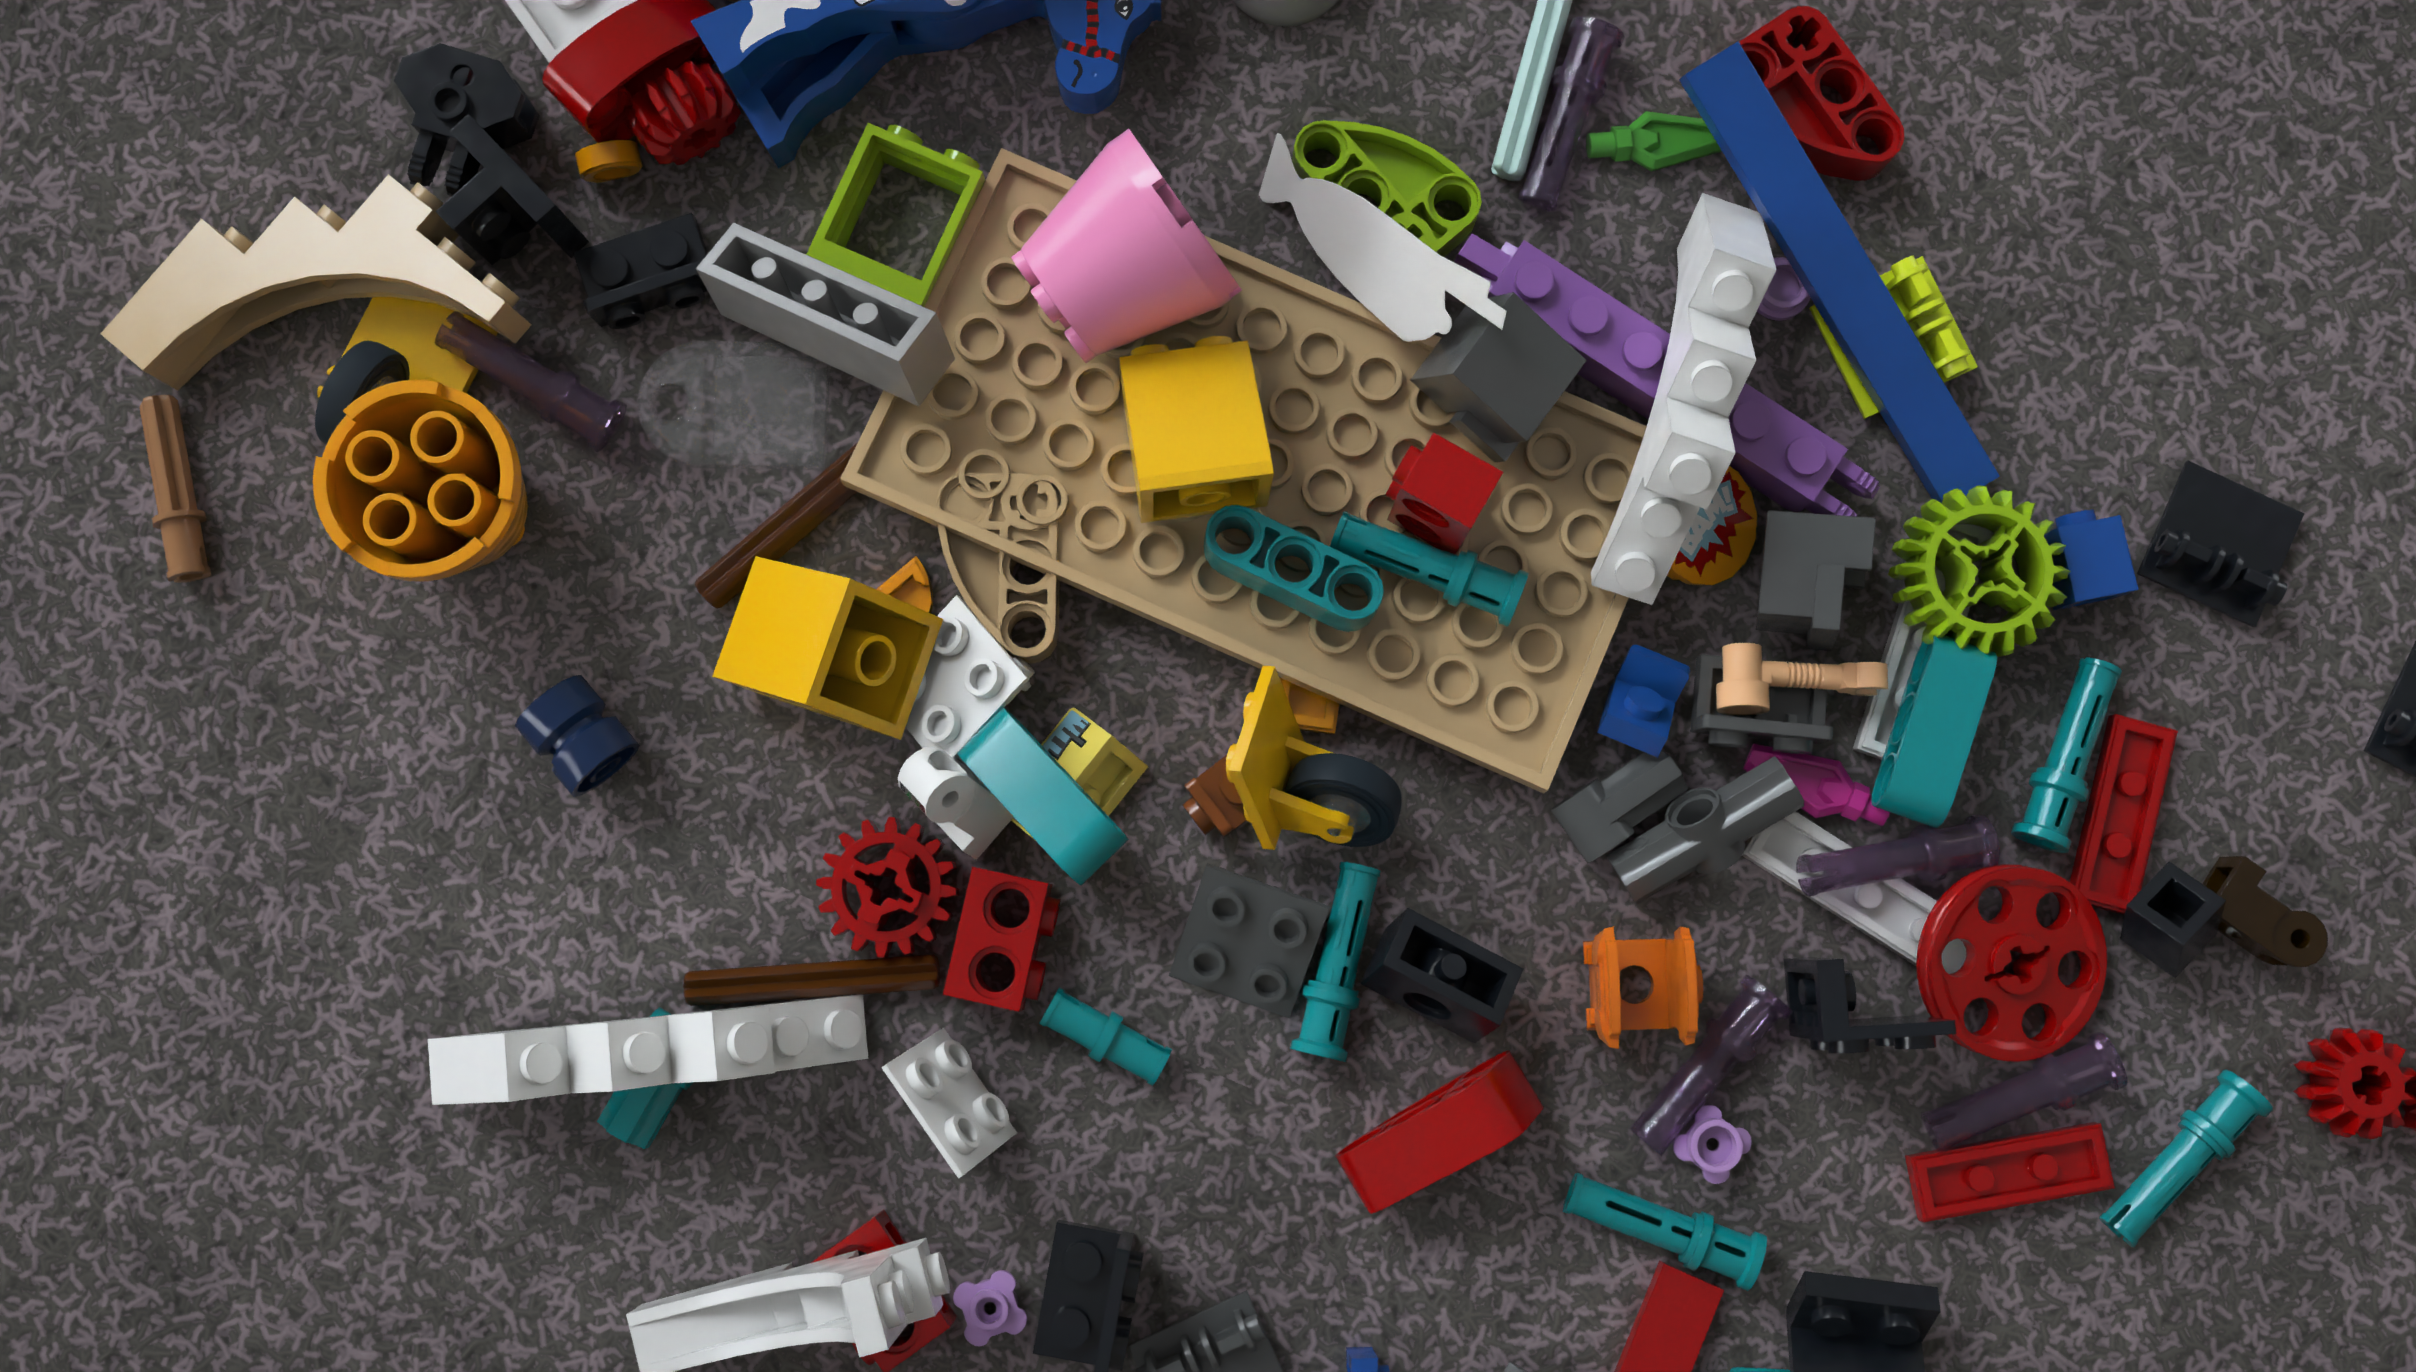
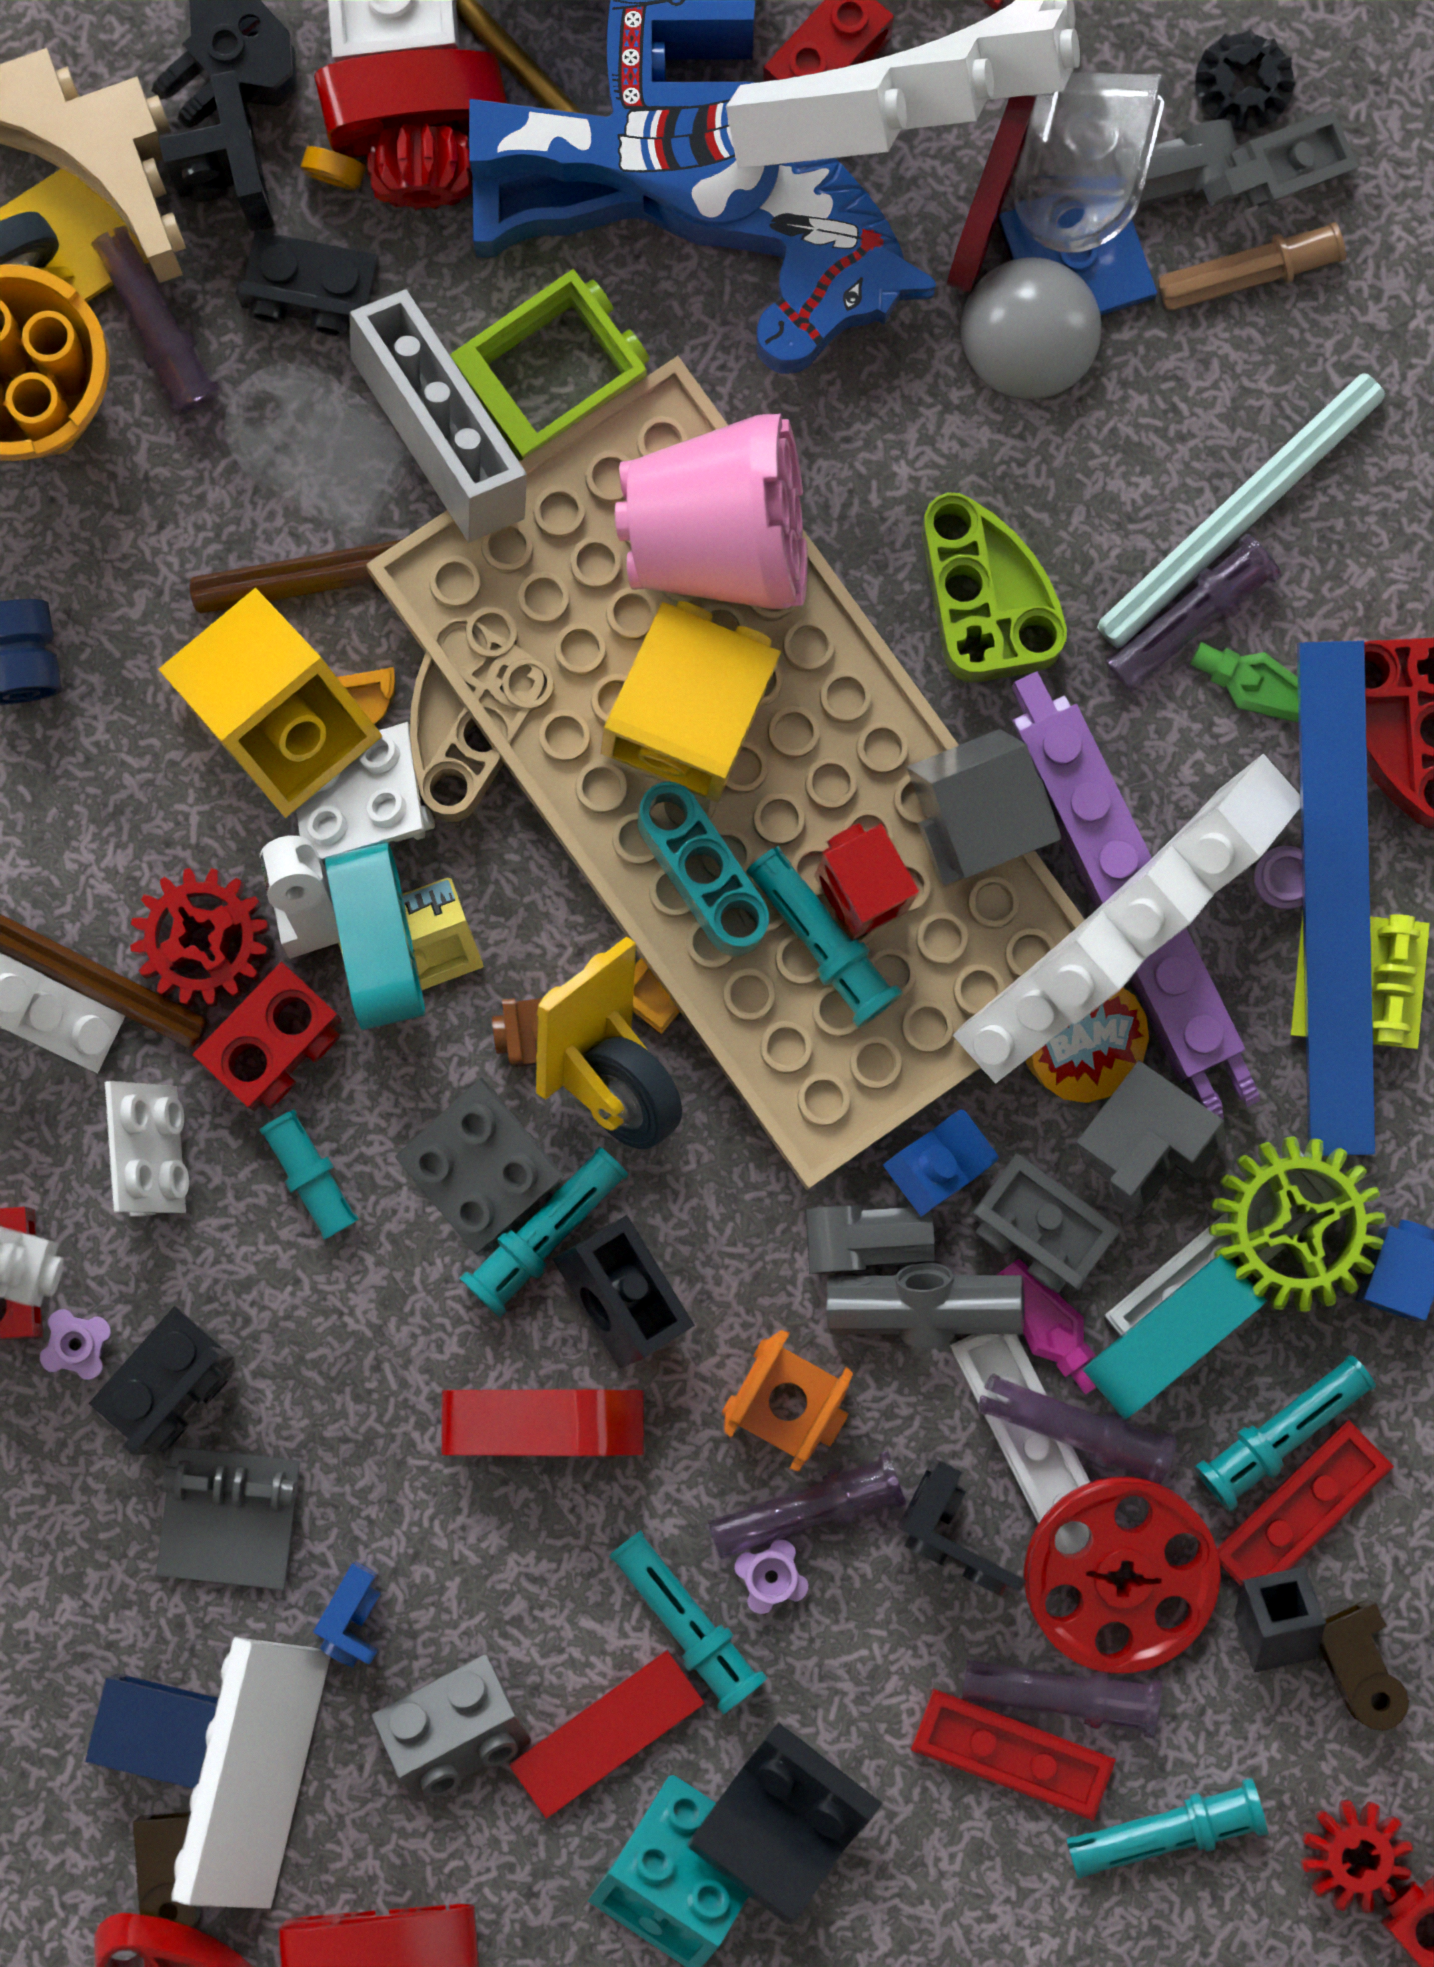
camera: 30 degrees right, 0 degrees up
(1375, 255) = (936, 640): white sticker -> none
(1749, 678) = (1041, 1195): light nougat brick -> none

